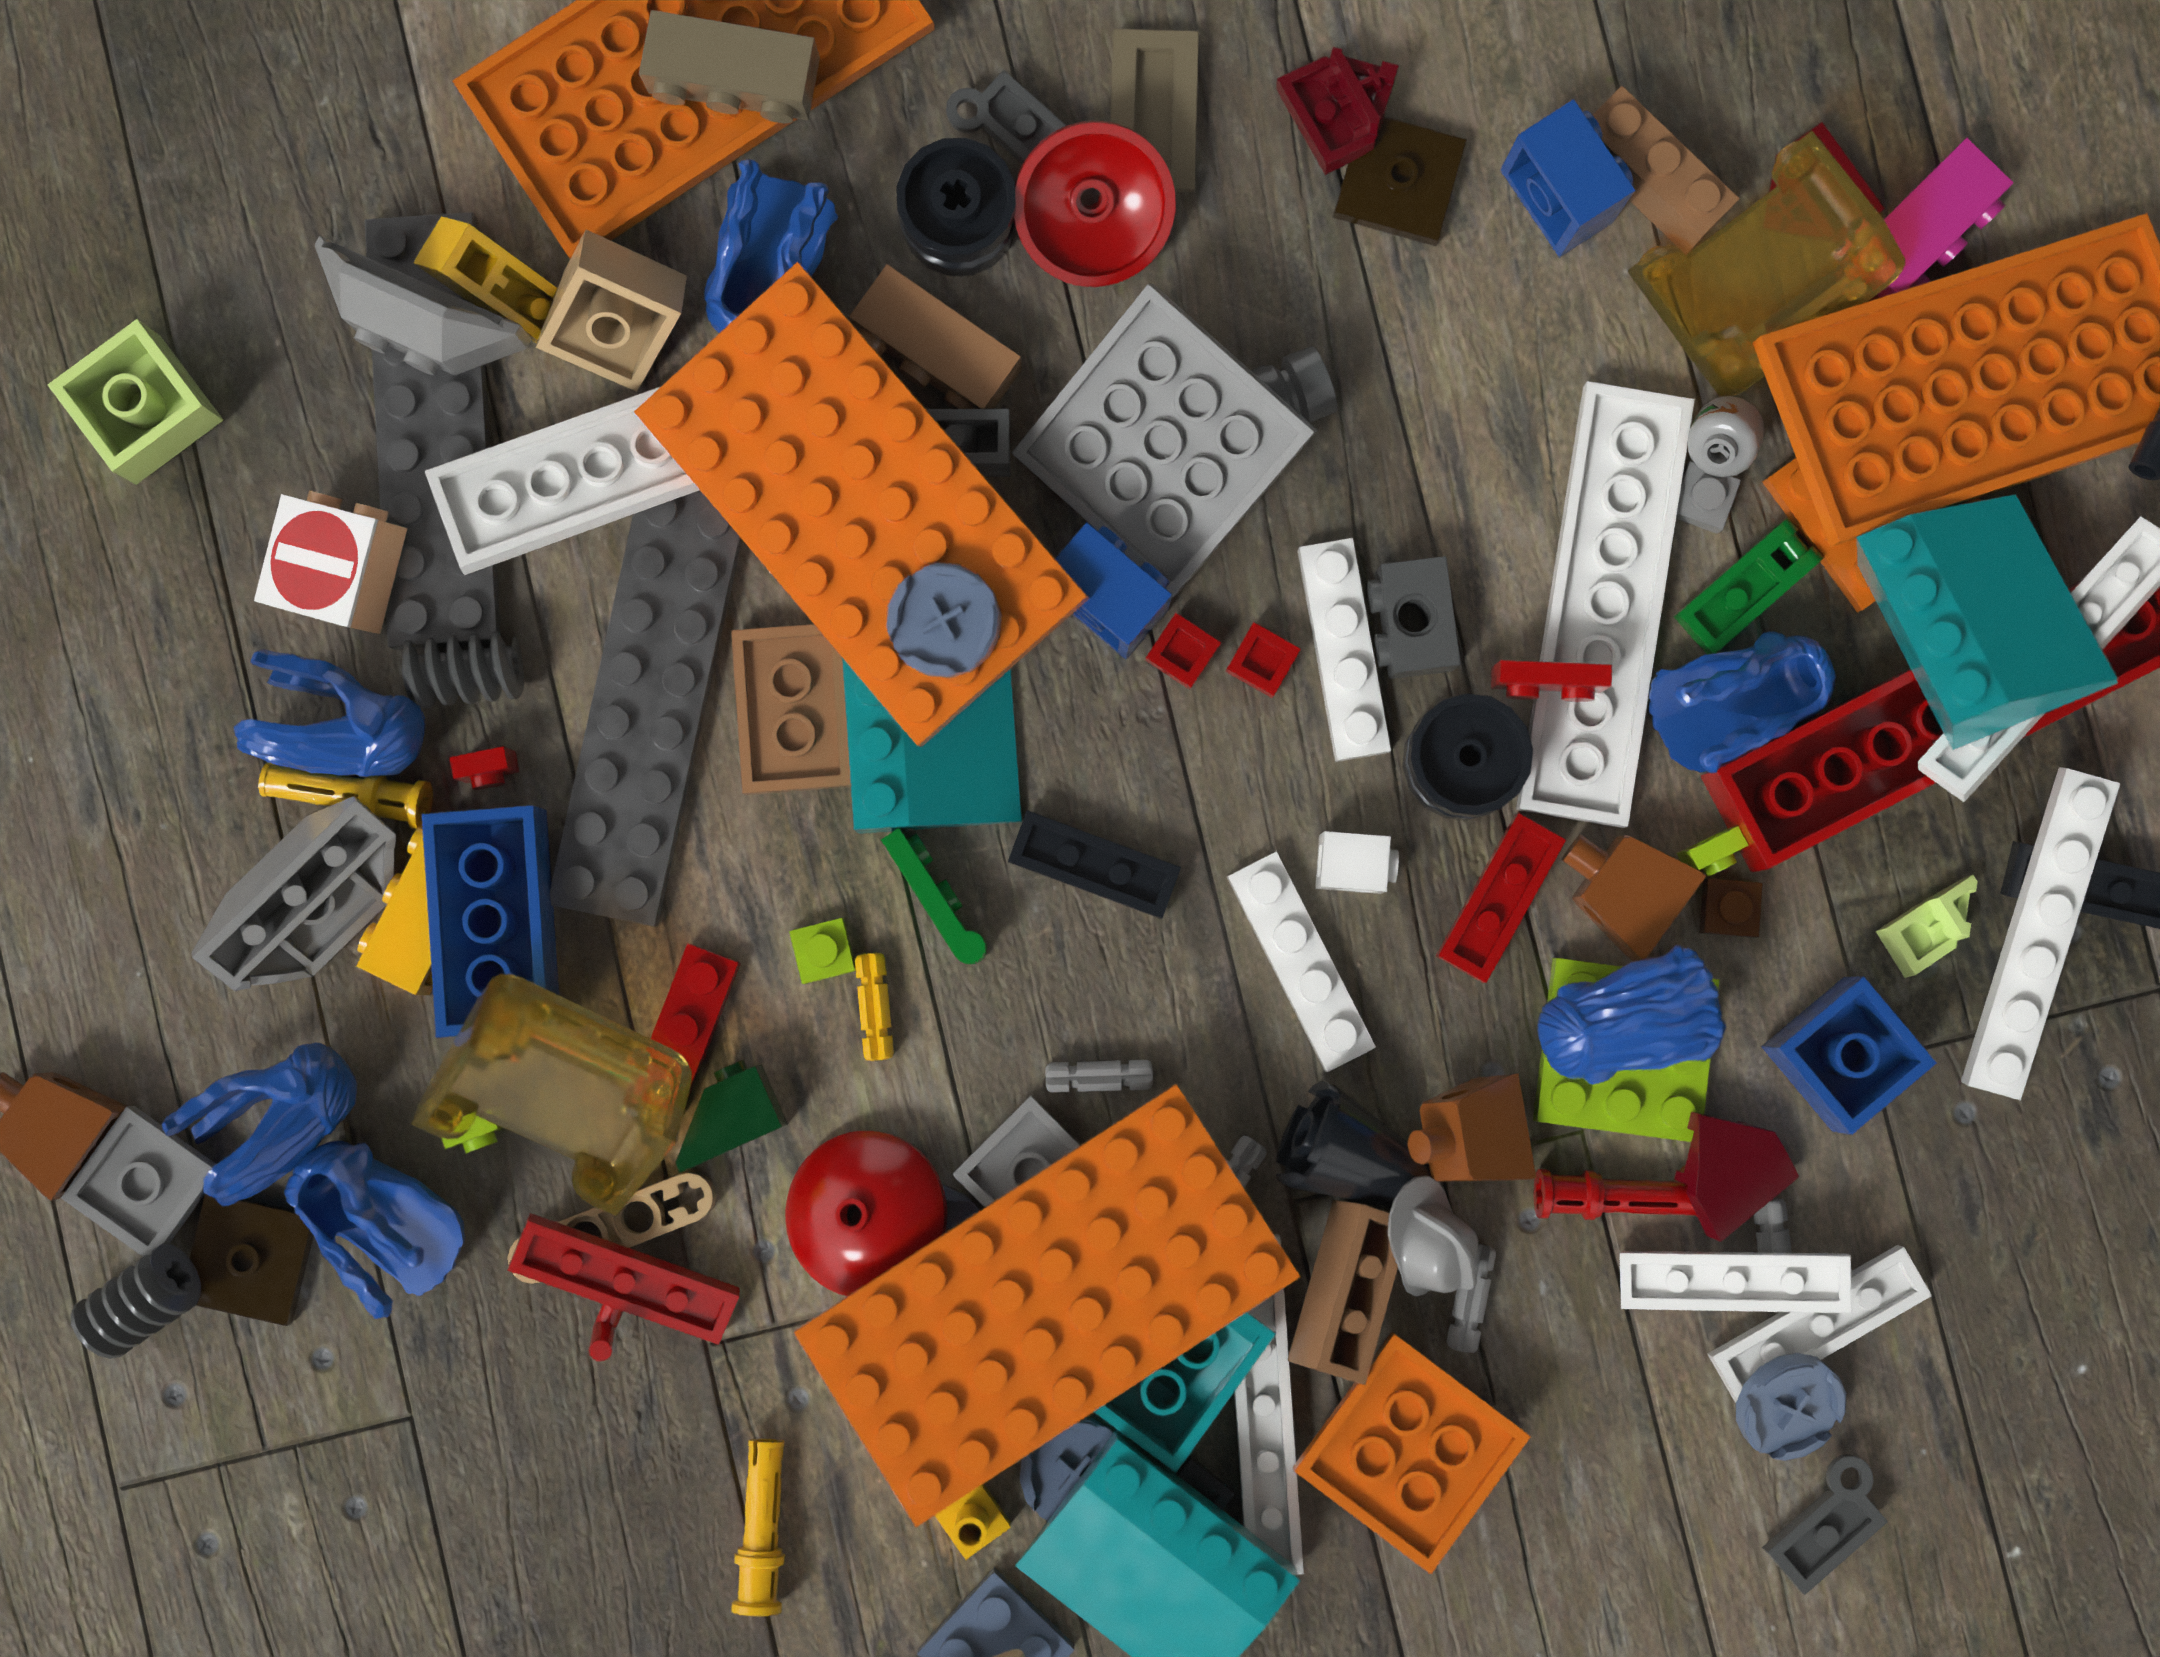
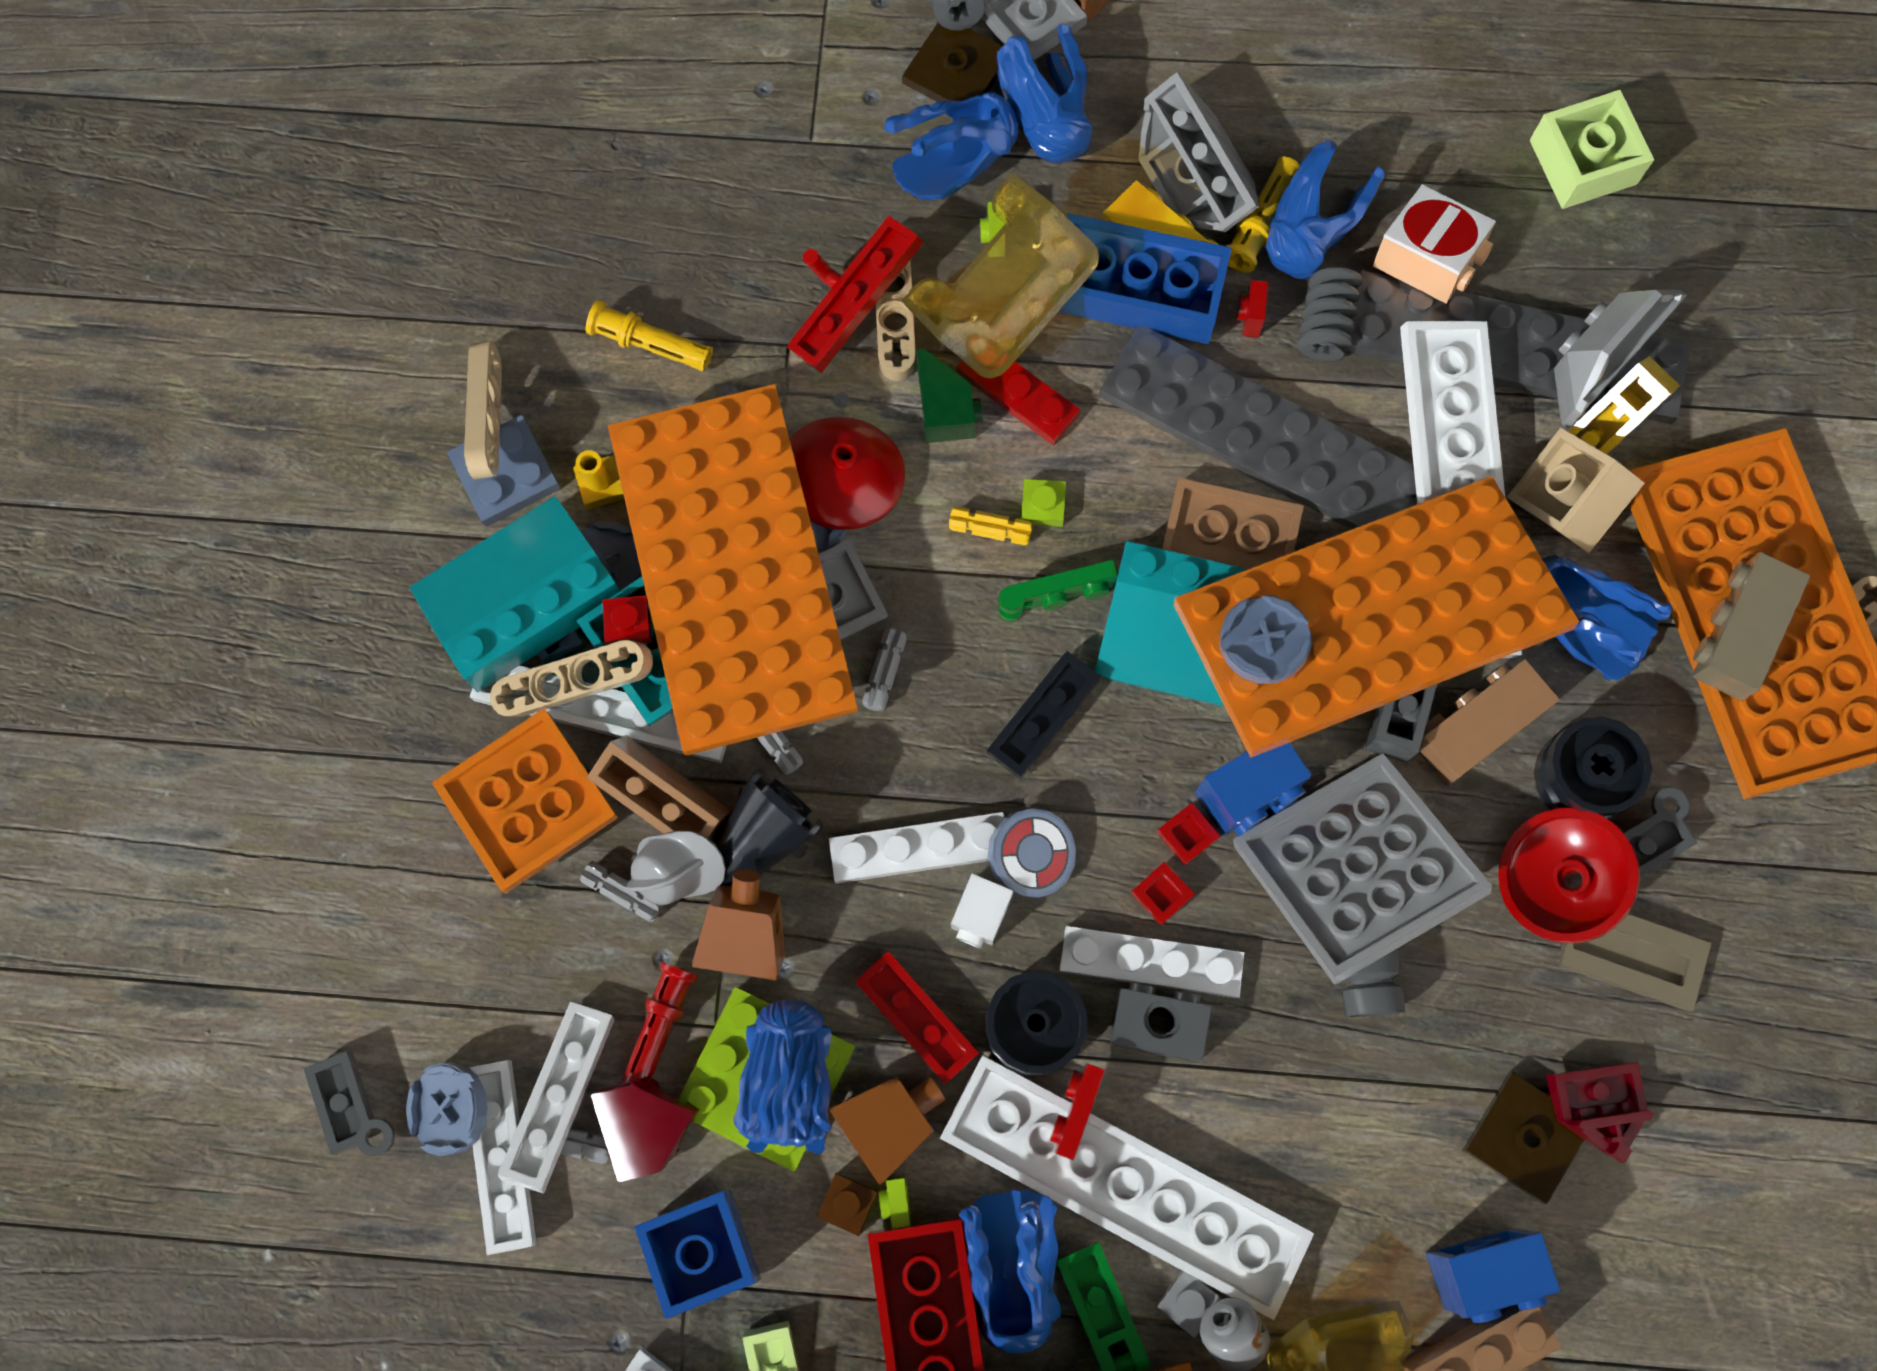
camera: 115 degrees right, 10 degrees down
(1158, 1407) = (627, 619): none -> red plate
(1249, 1451) = (570, 676): none -> tan beam
(1266, 825) = (1032, 852): none -> tile

